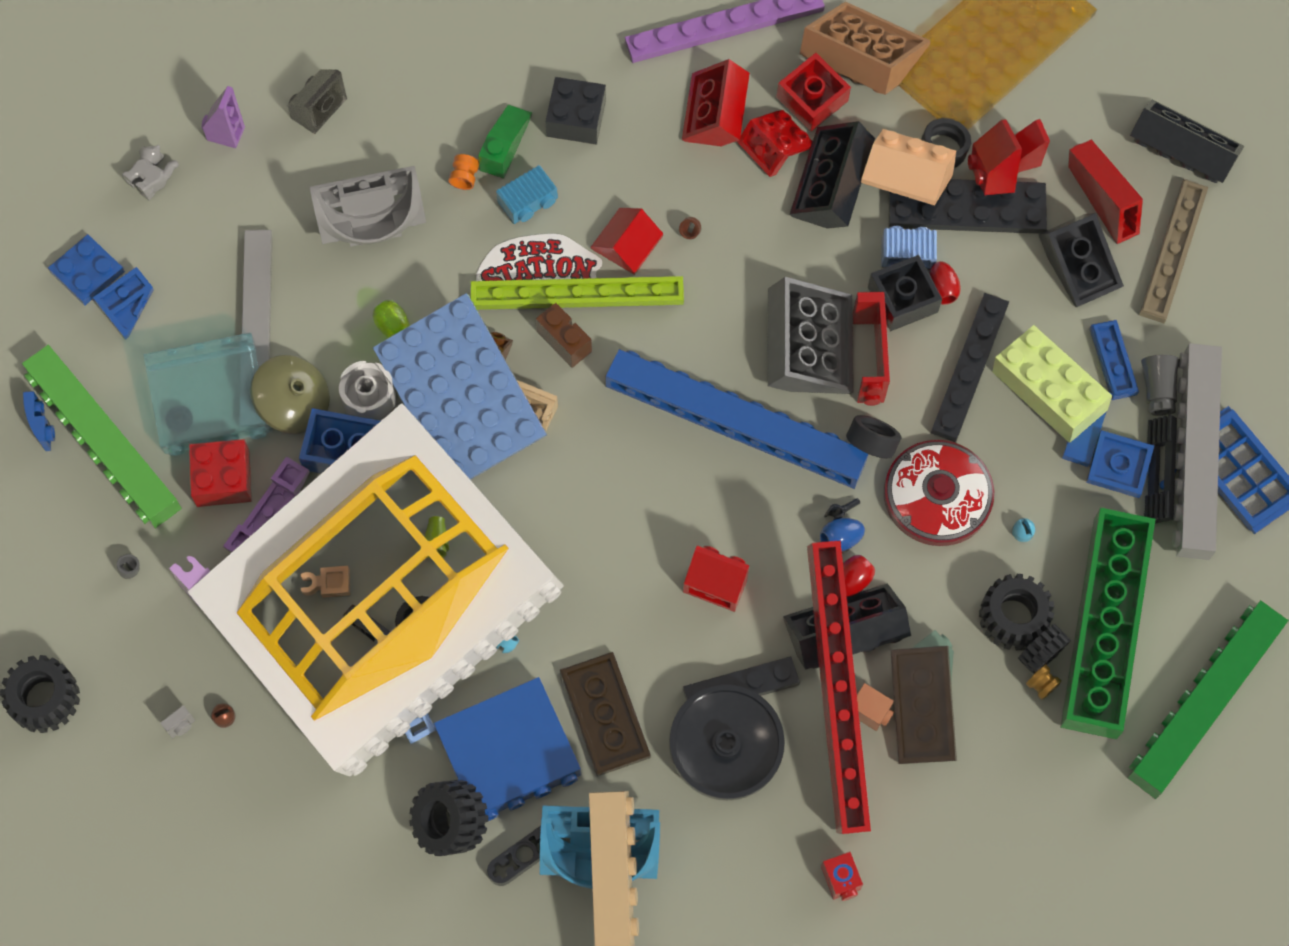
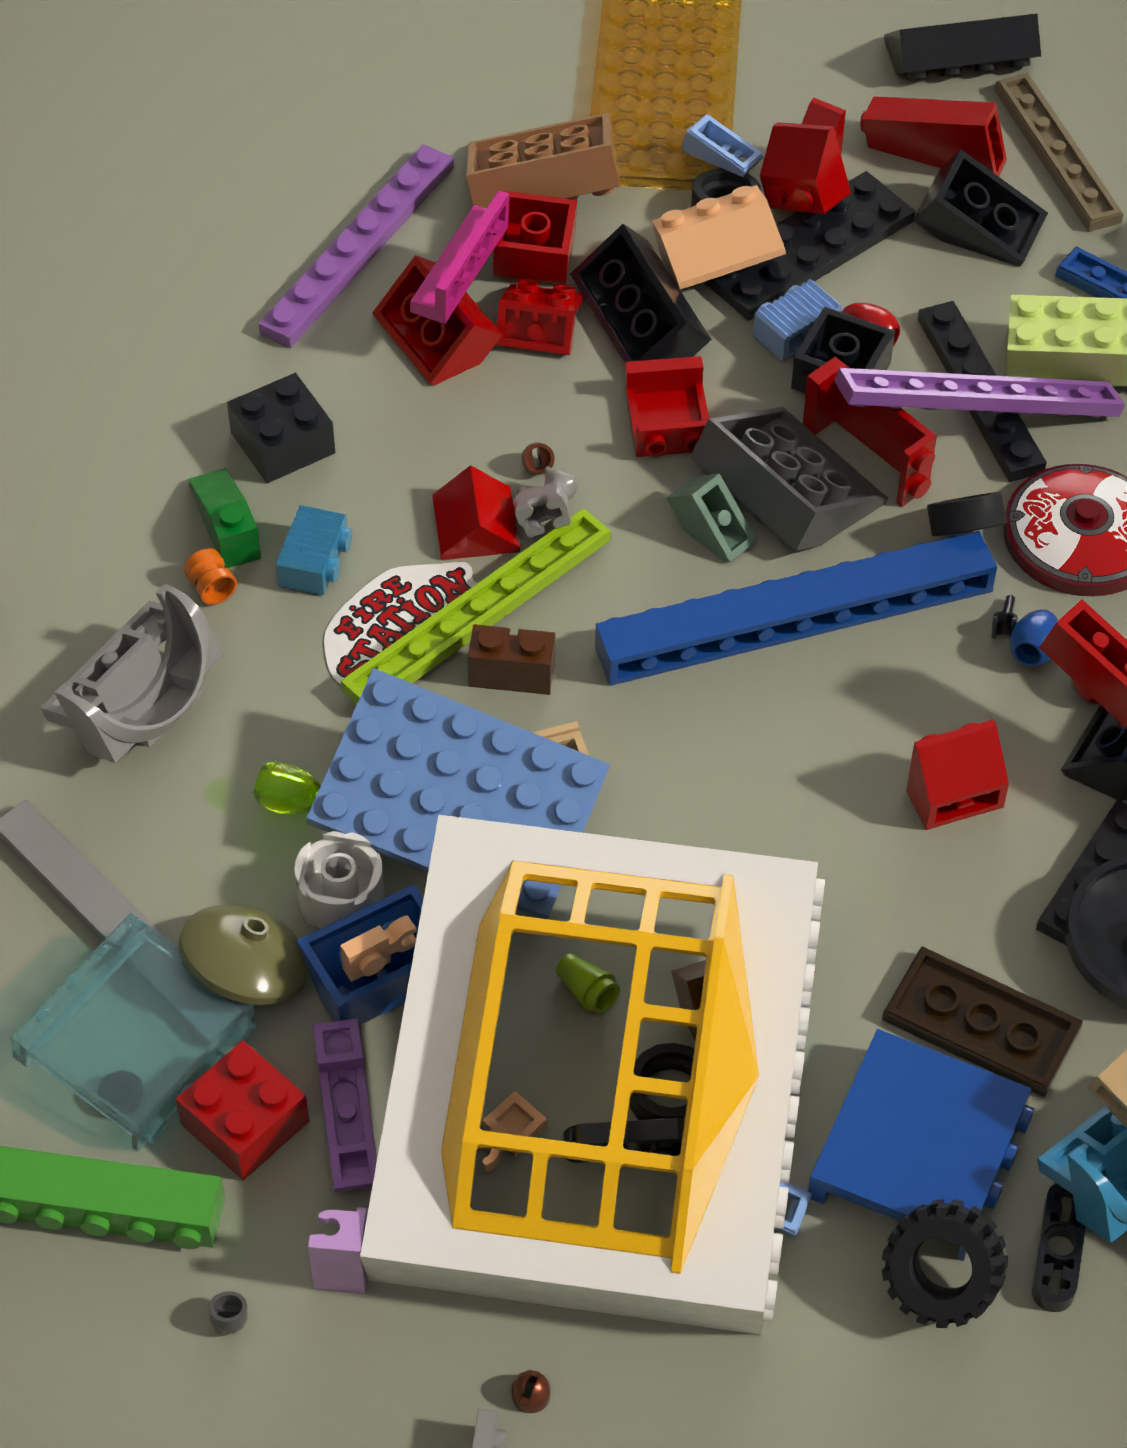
camera: 40 degrees left, 15 degrees down
(332, 443) = (372, 950): none -> light nougat plate
(665, 258) = (545, 502): none -> light grey animal
(744, 333) = (712, 516): none -> sand green slope
(746, 81) = (461, 260): none -> dark pink fence
(788, 248) = (665, 405): none -> red panel
(947, 373) = (978, 393): none -> medium lavender plate
(972, 91) = (711, 143): none -> light blue slope

